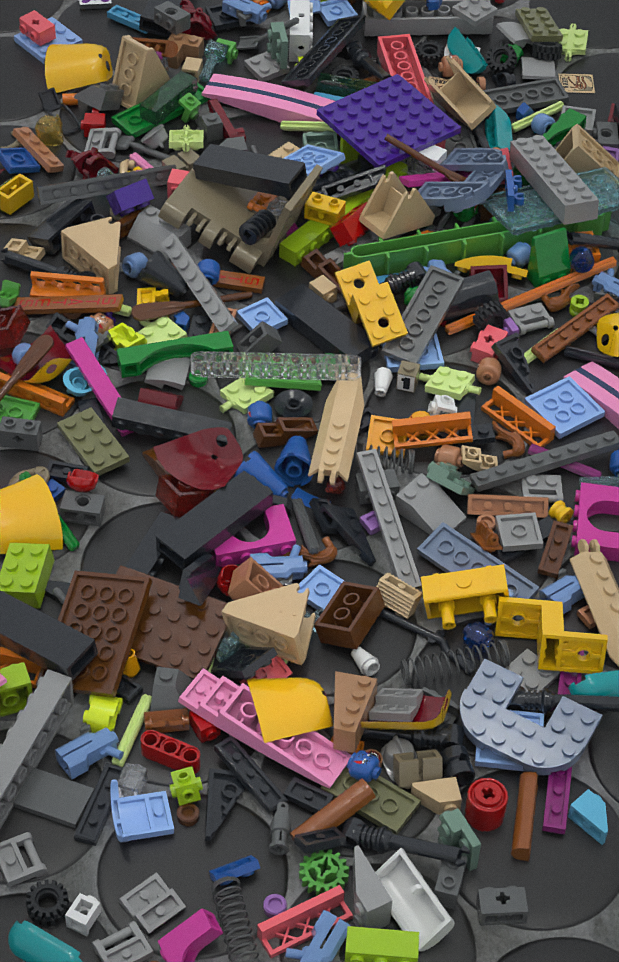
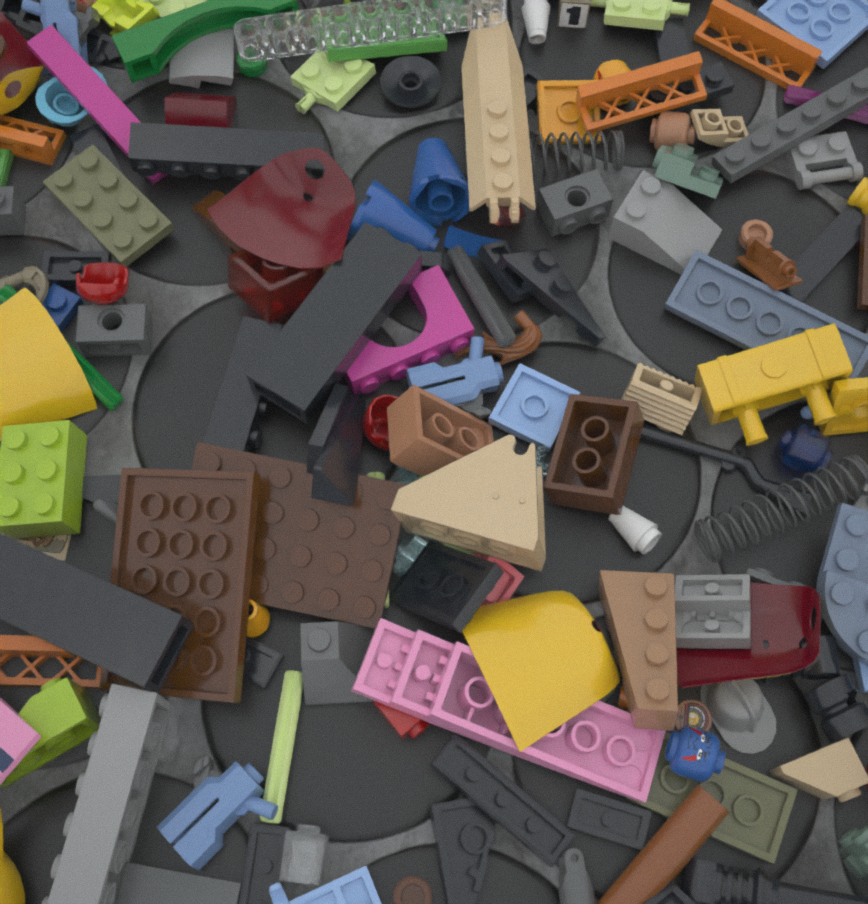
camera: 10 degrees left, 20 degrees up
(102, 712) = (226, 727): neon yellow cylinder -> none
(163, 744) = (341, 769): red beam -> none
(167, 720) = (334, 716): dark orange hinge -> none
(185, 786) = (399, 852): lime brick -> none
(259, 413) = (362, 110): blue head -> none
(282, 430) = (406, 130): reddish brown slope -> none
(370, 523) = (584, 267): medium lavender plate -> none
(388, 518) = (611, 262): light grey plate -> none
(410, 770) = (795, 729): dark tan piece -> none
(442, 405) = (642, 48): white brick -> none
(504, 505) = (782, 199): nougat plate -> none
(514, 439) = (759, 82): dark orange piece -> none
(519, 532) = (817, 244): light grey plate -> none

